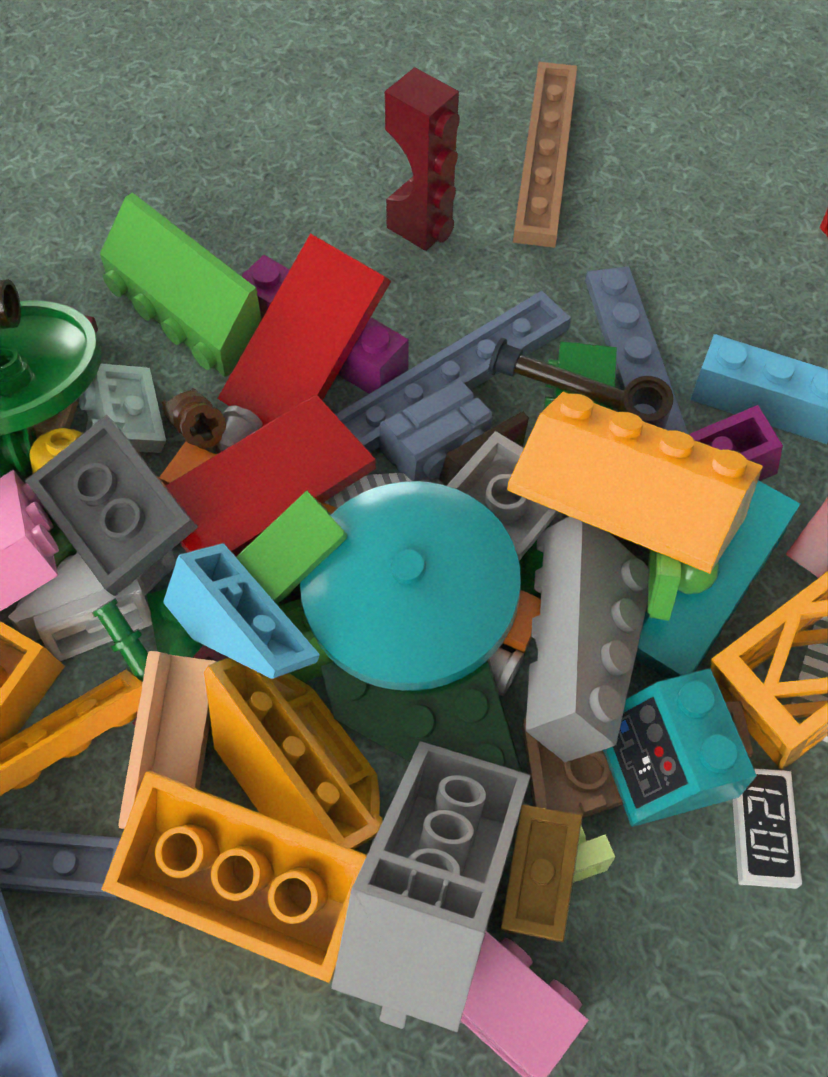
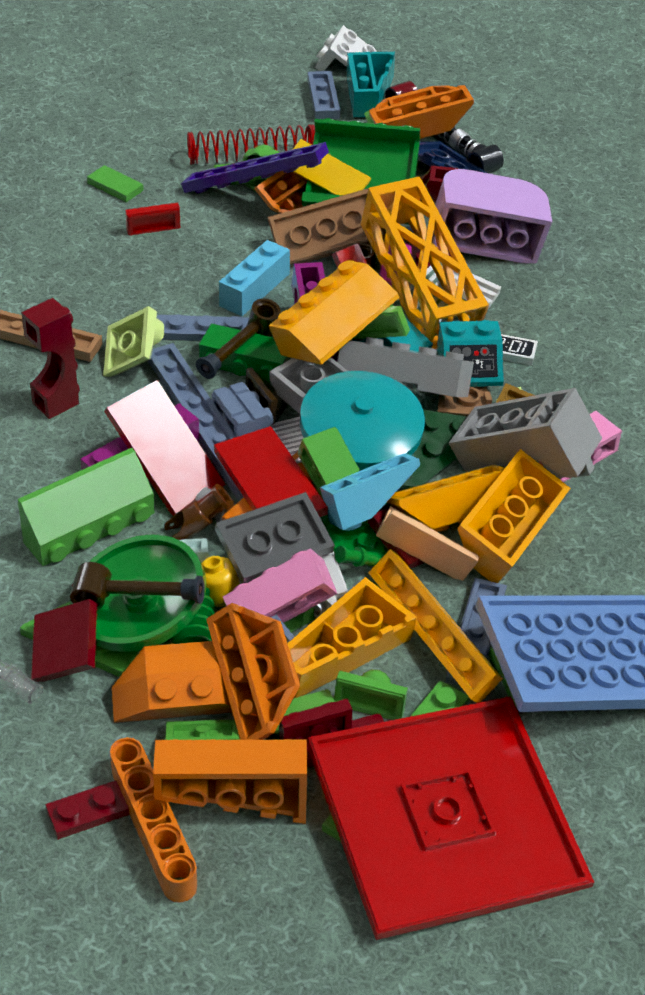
camera: 80 degrees left, 15 degrees down
(547, 269) = (131, 341): none -> yellowish green slope

